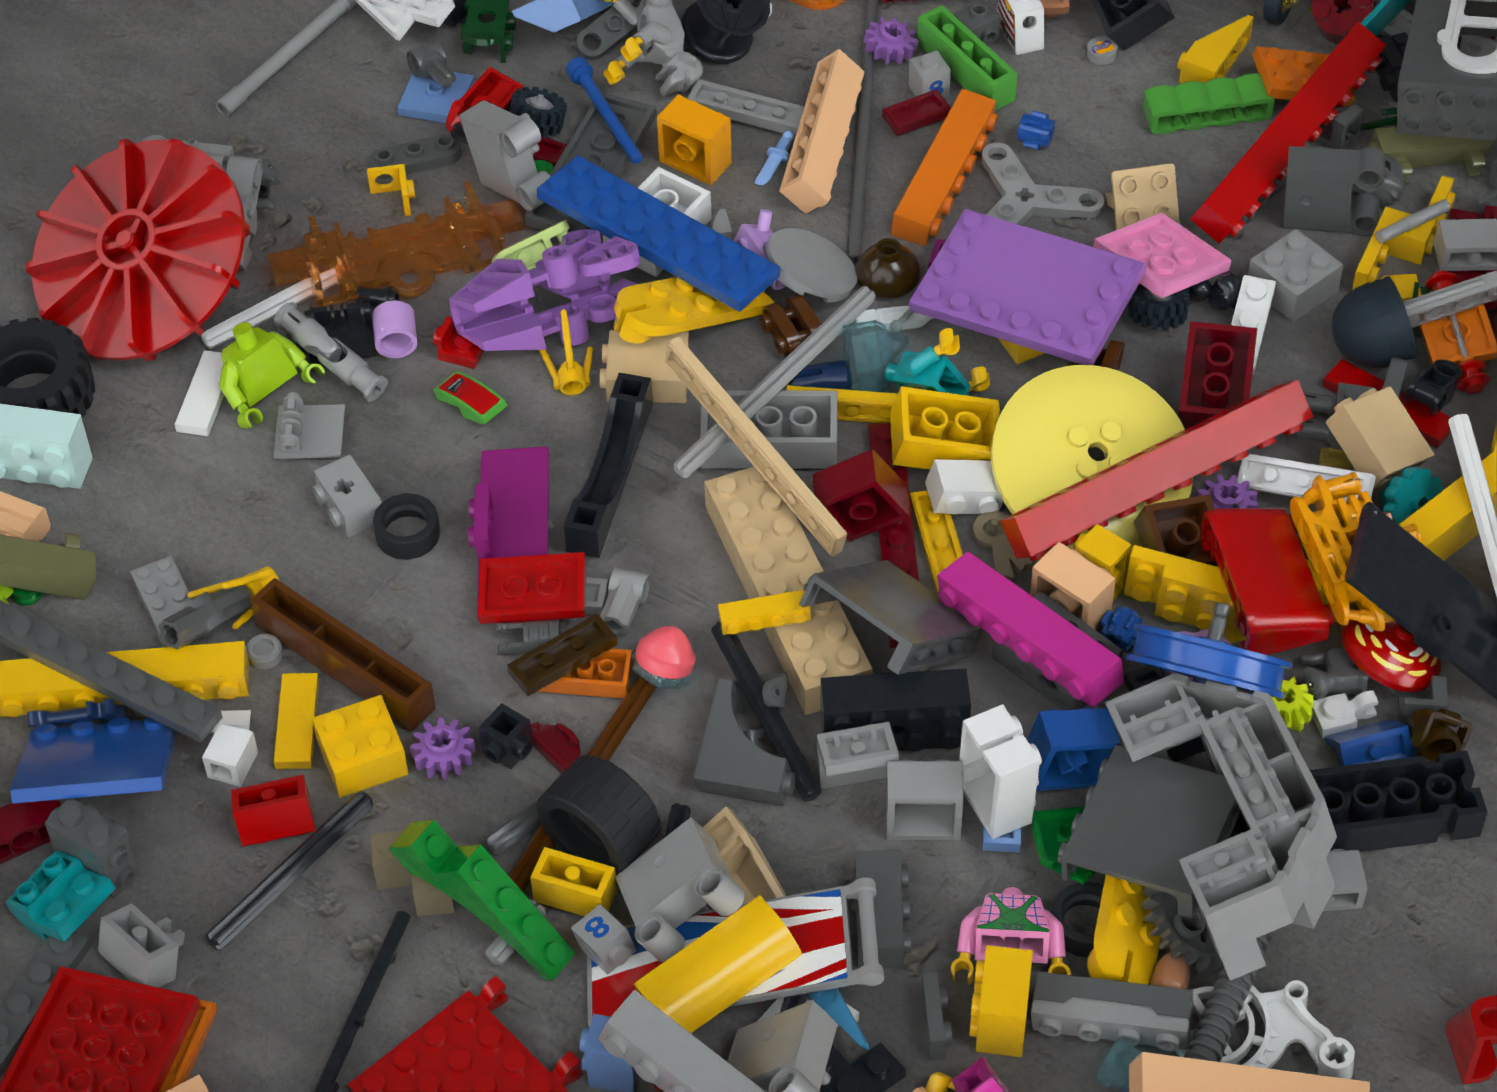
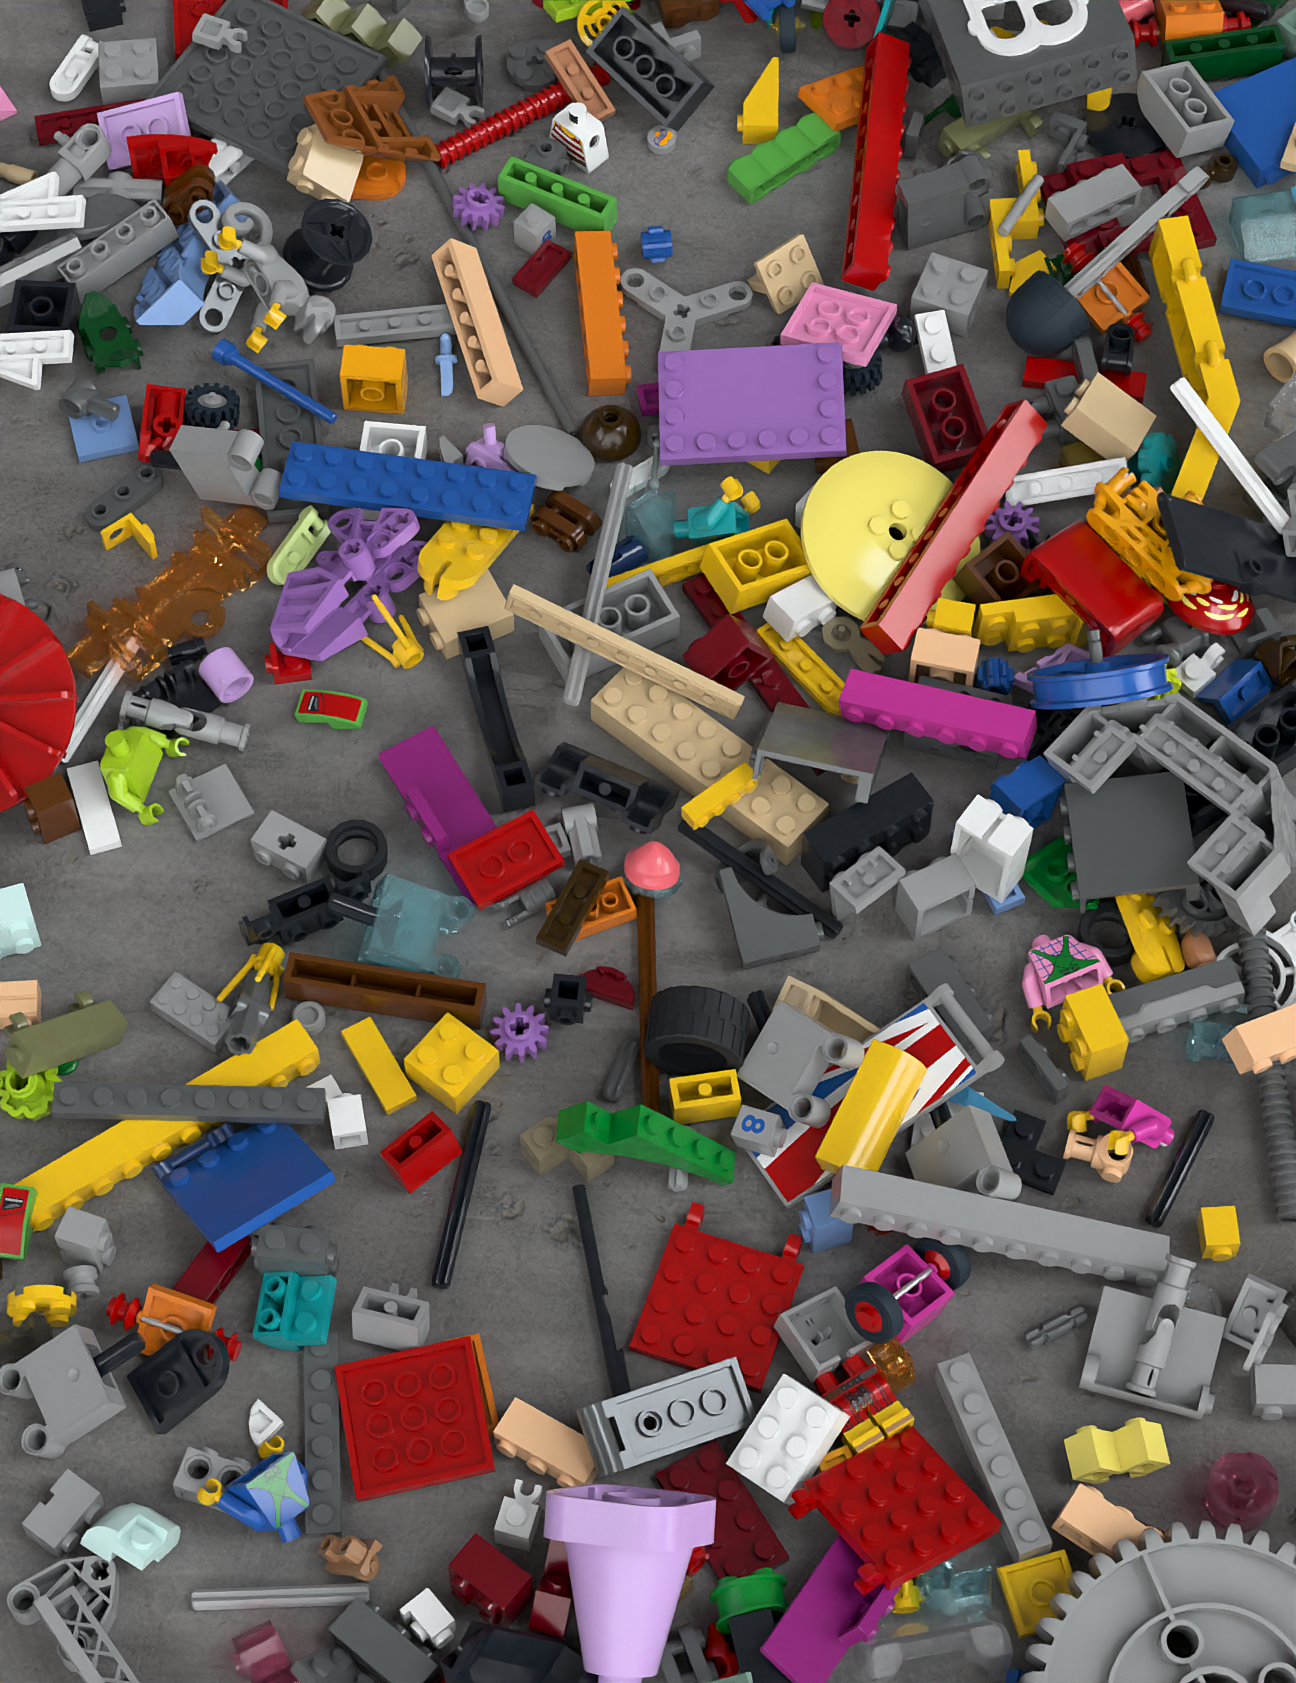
camera: 30 degrees left, 10 degrees up
(160, 372) = (51, 809): none -> reddish brown brick
(319, 551) = (303, 910): none -> black bracket
(396, 601) = (406, 925): none -> clear light blue piece
(687, 579) = (602, 781): none -> black bracket

